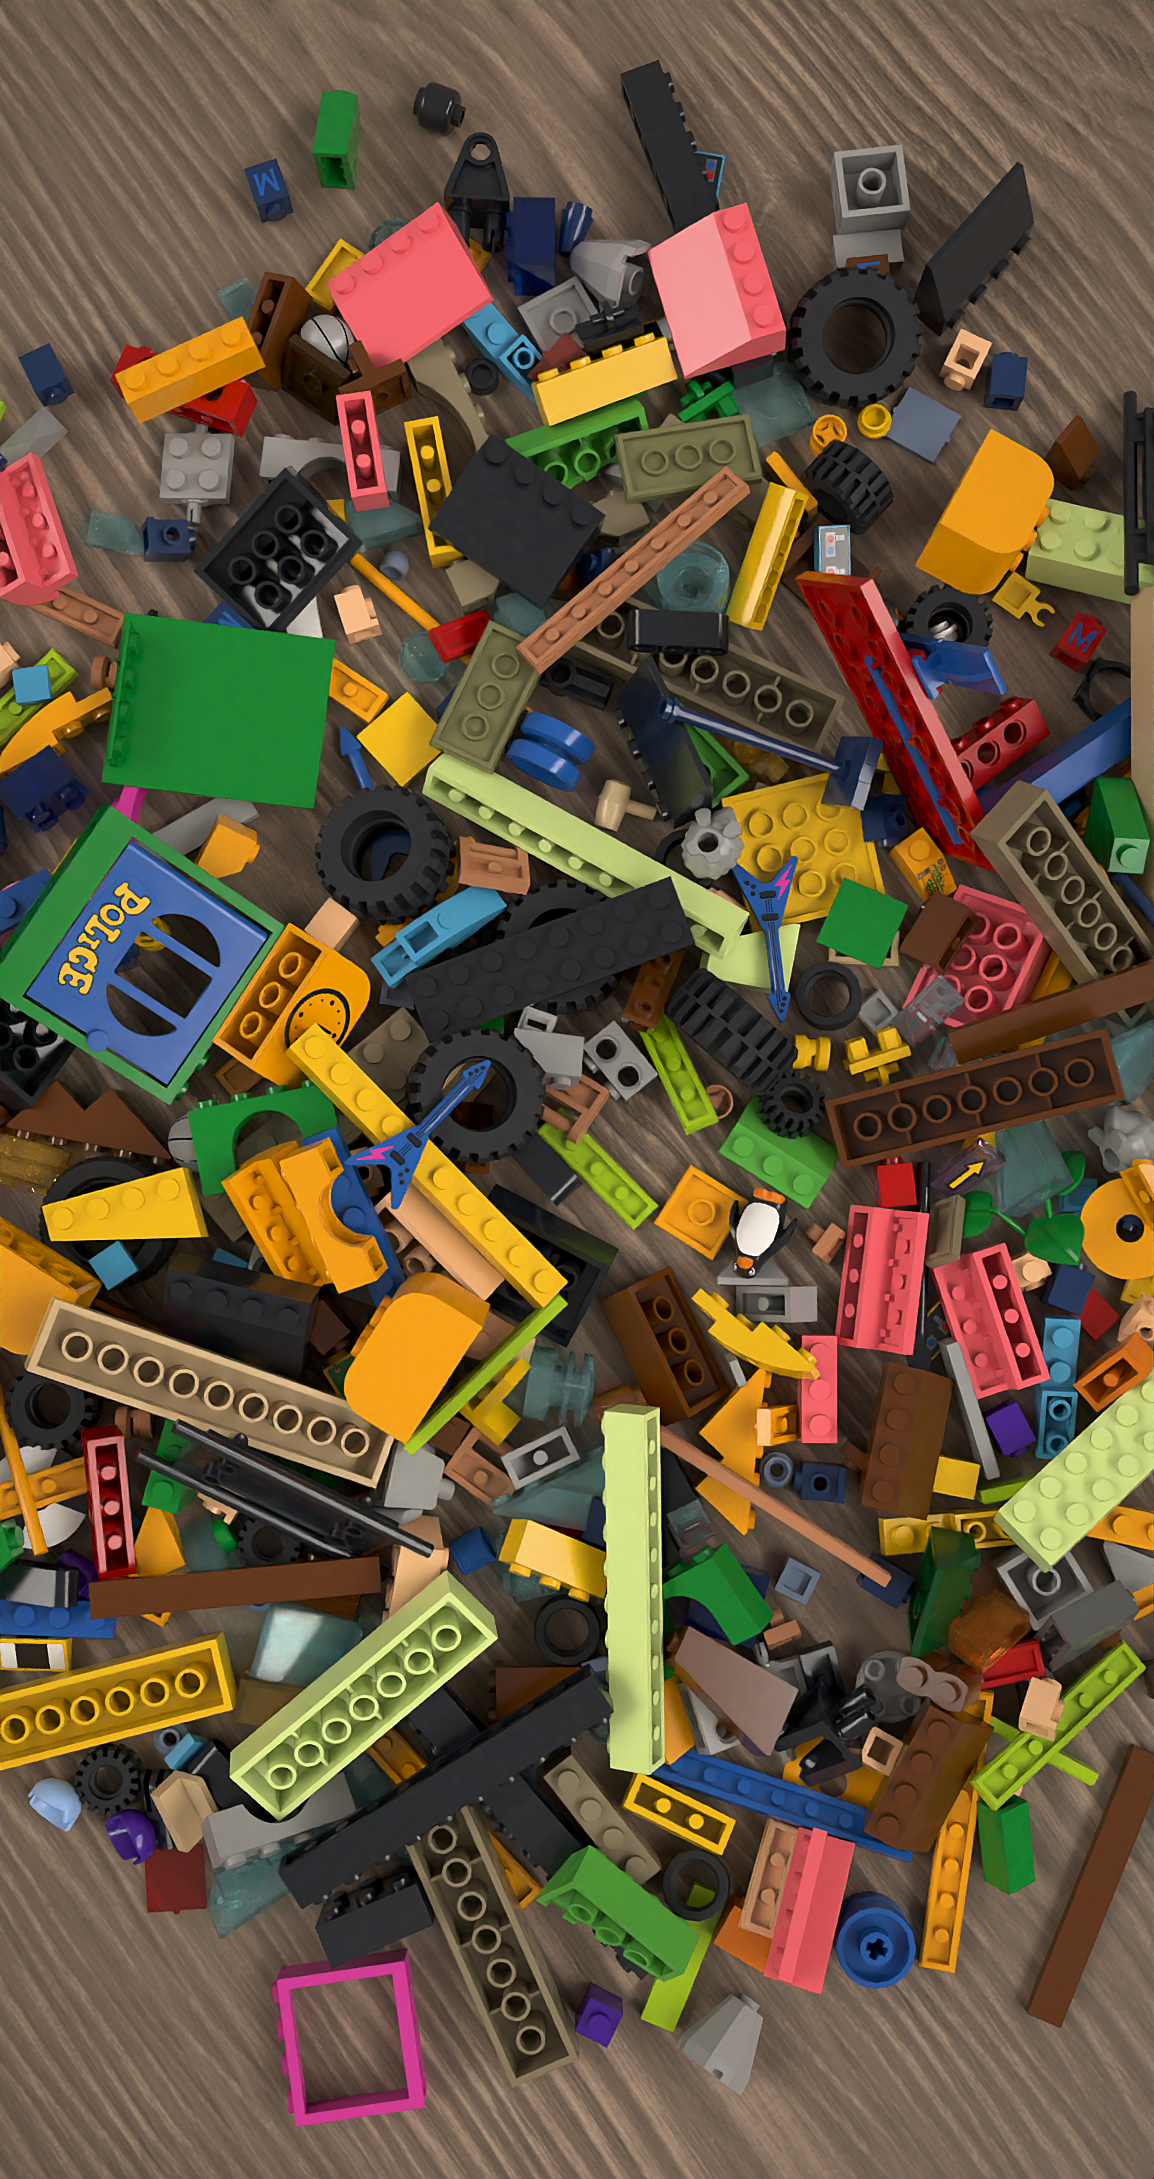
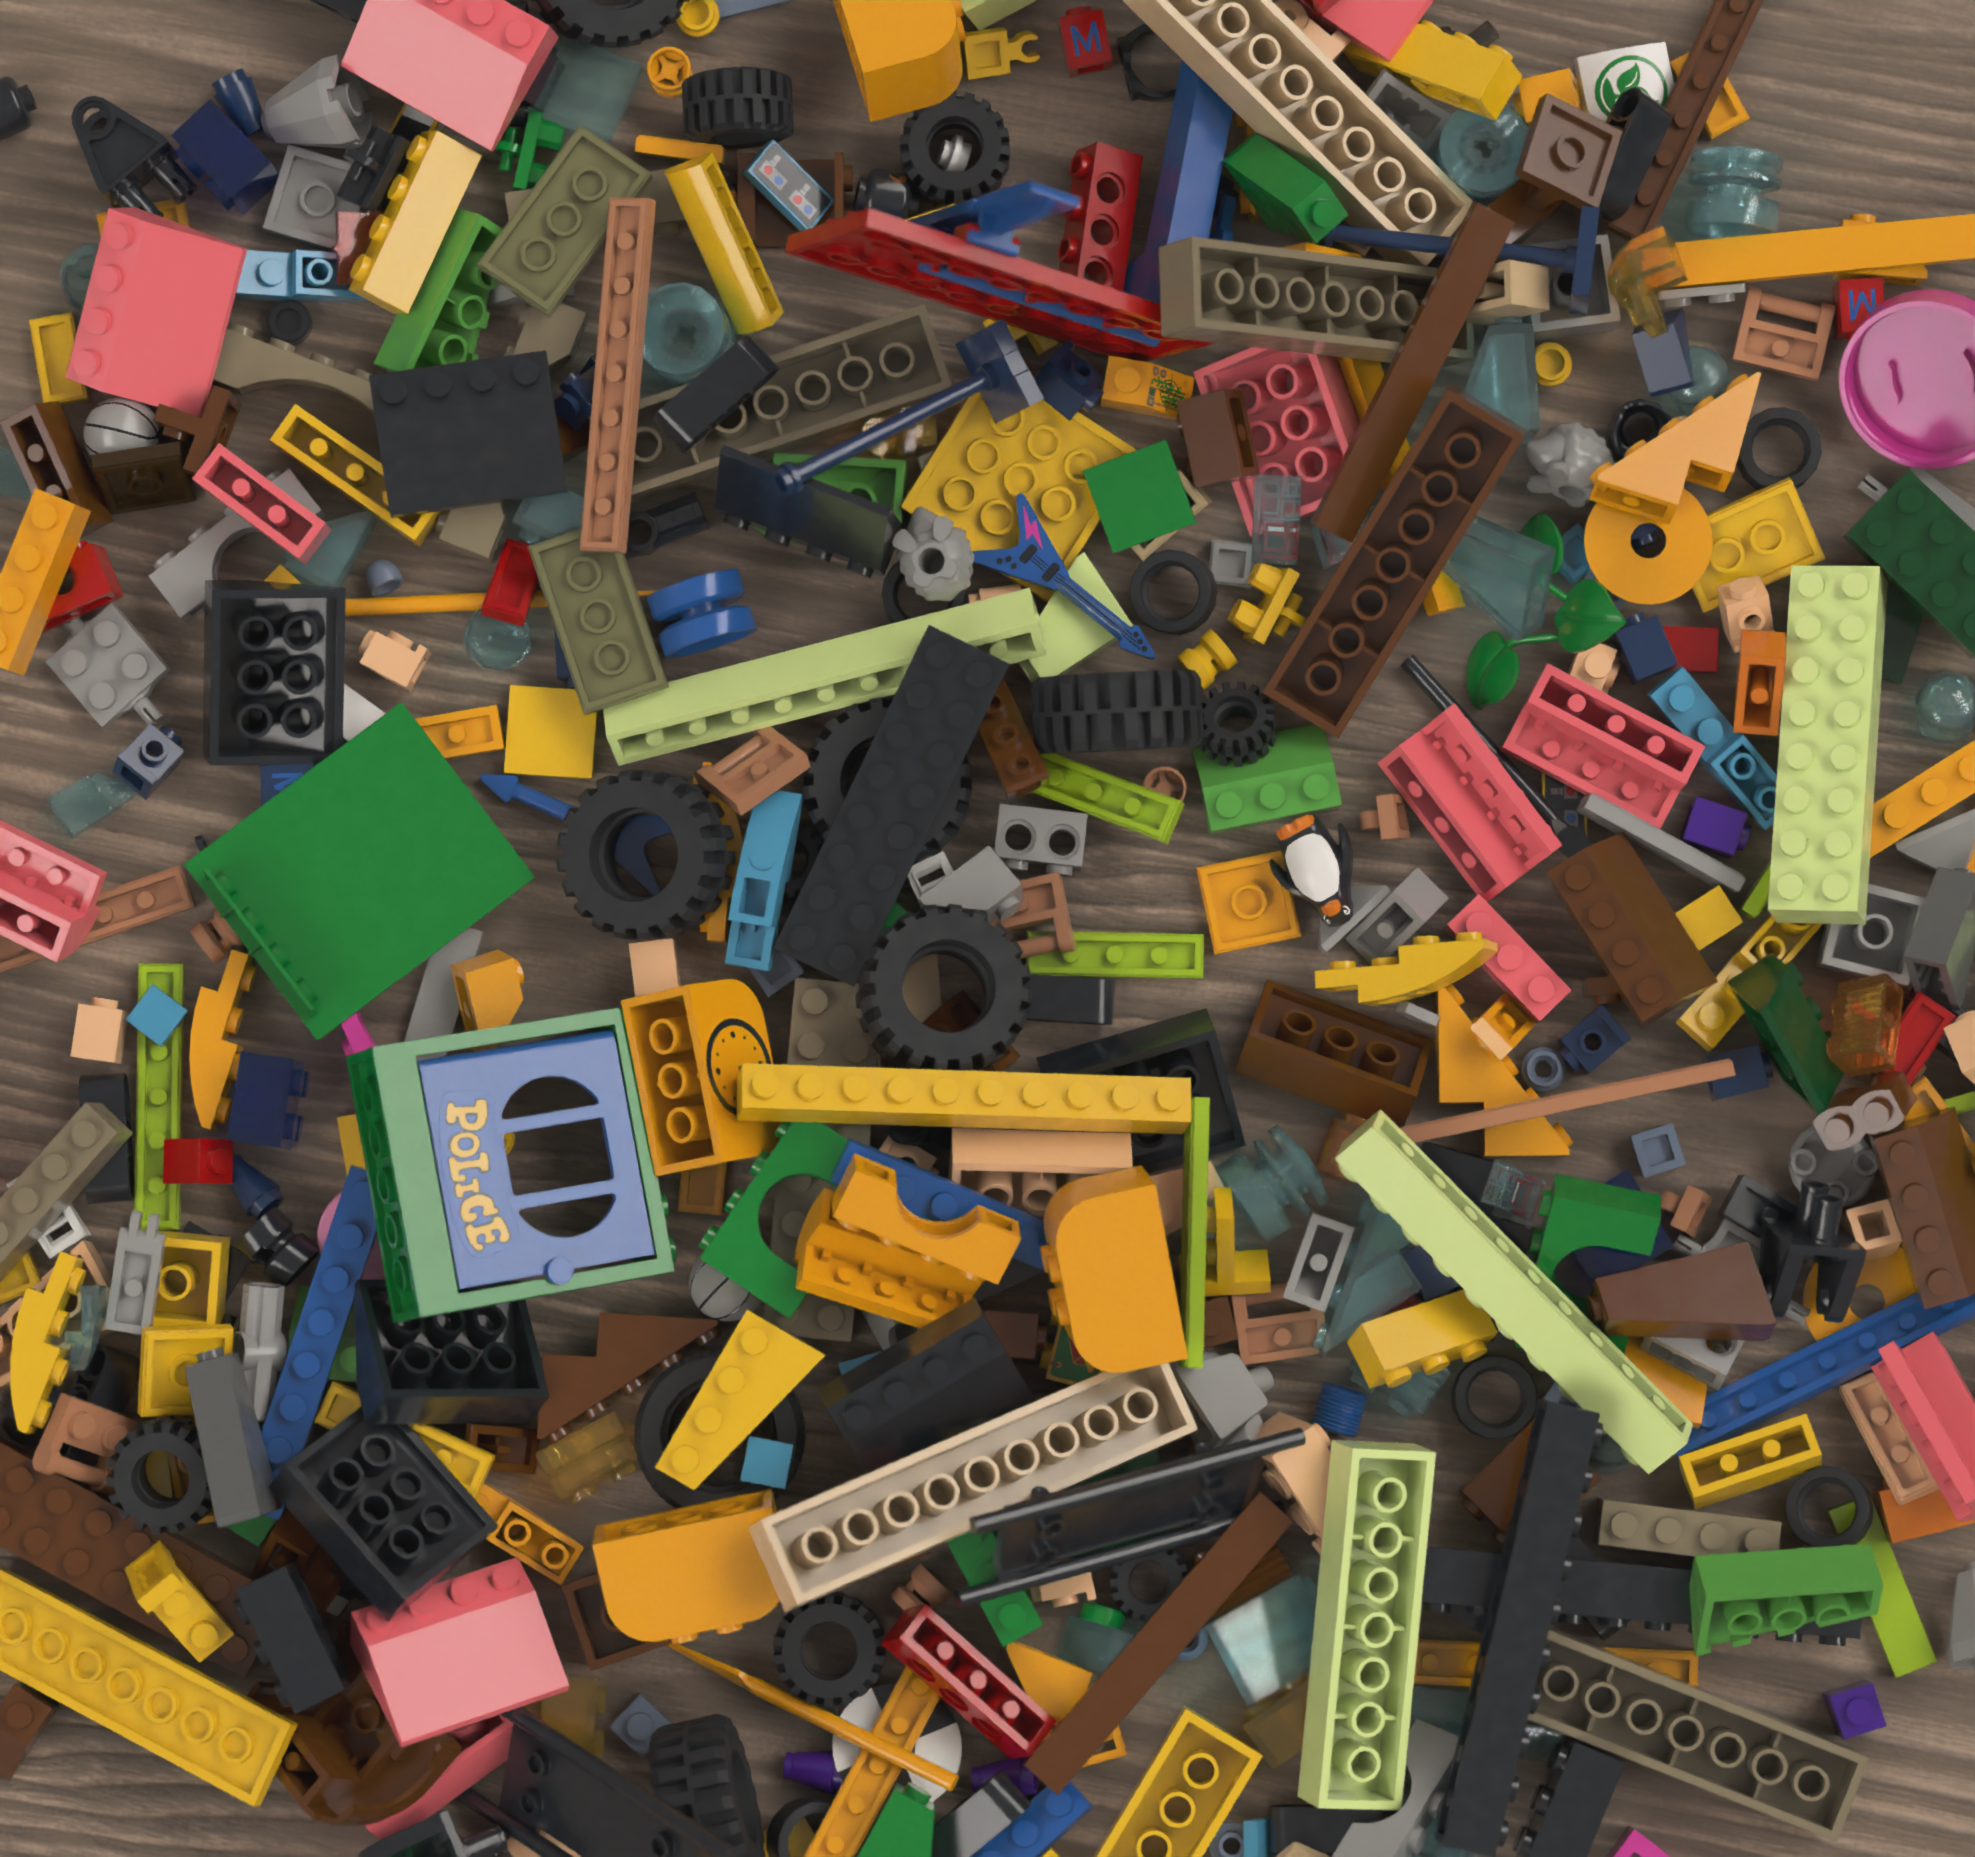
camera: 45 degrees left, 0 degrees up
(404, 1150) = (933, 1099): blue piece -> none
(615, 802) = (804, 601): tan piece -> none
(894, 1183) = (1398, 705): red brick -> none
(945, 1231) = (1485, 705): dark tan tile -> none
(968, 1169) = (1451, 629): tile -> none

